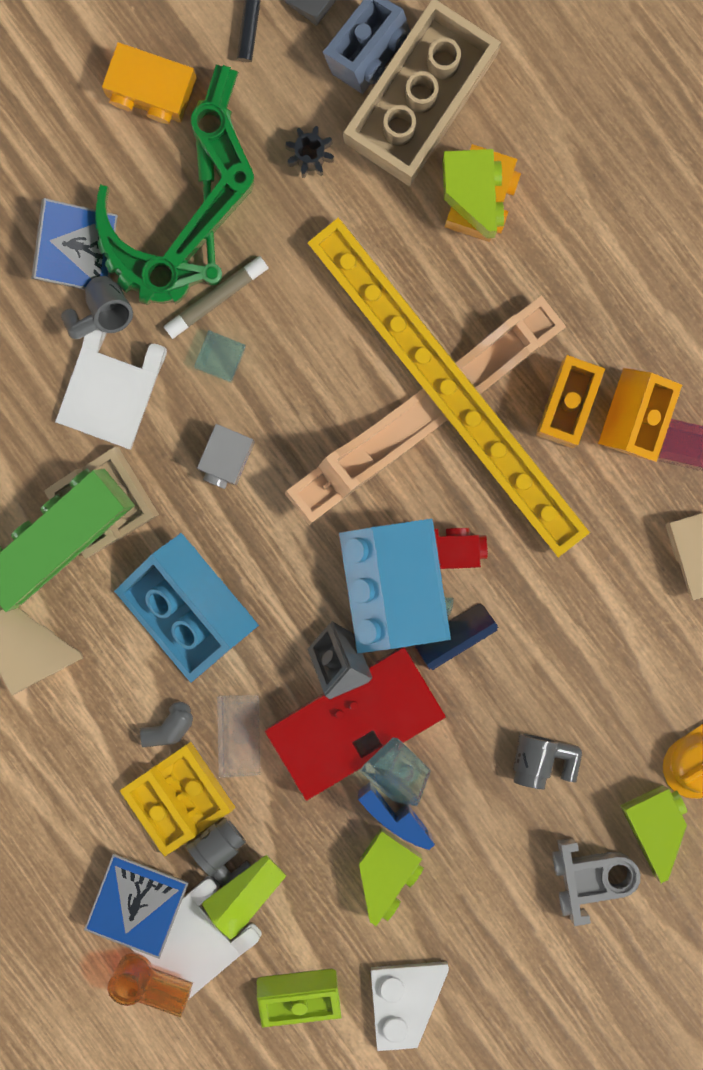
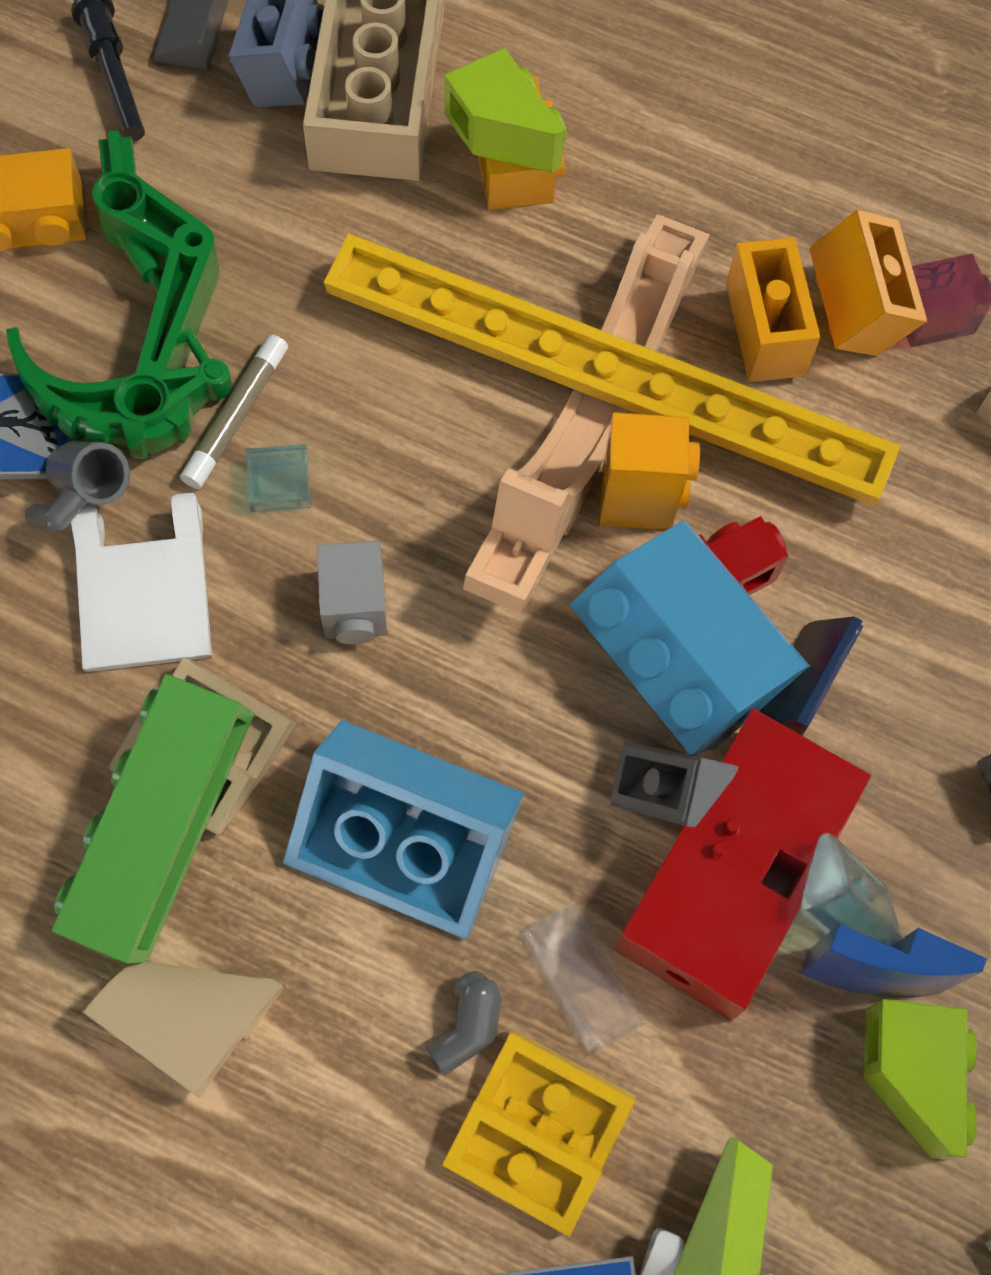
camera: 30 degrees left, 20 degrees down
(216, 848) = (644, 1176): dark grey piece -> none
(314, 142) = (271, 188): black gear -> none
(429, 474) = (647, 471): none -> light orange brick

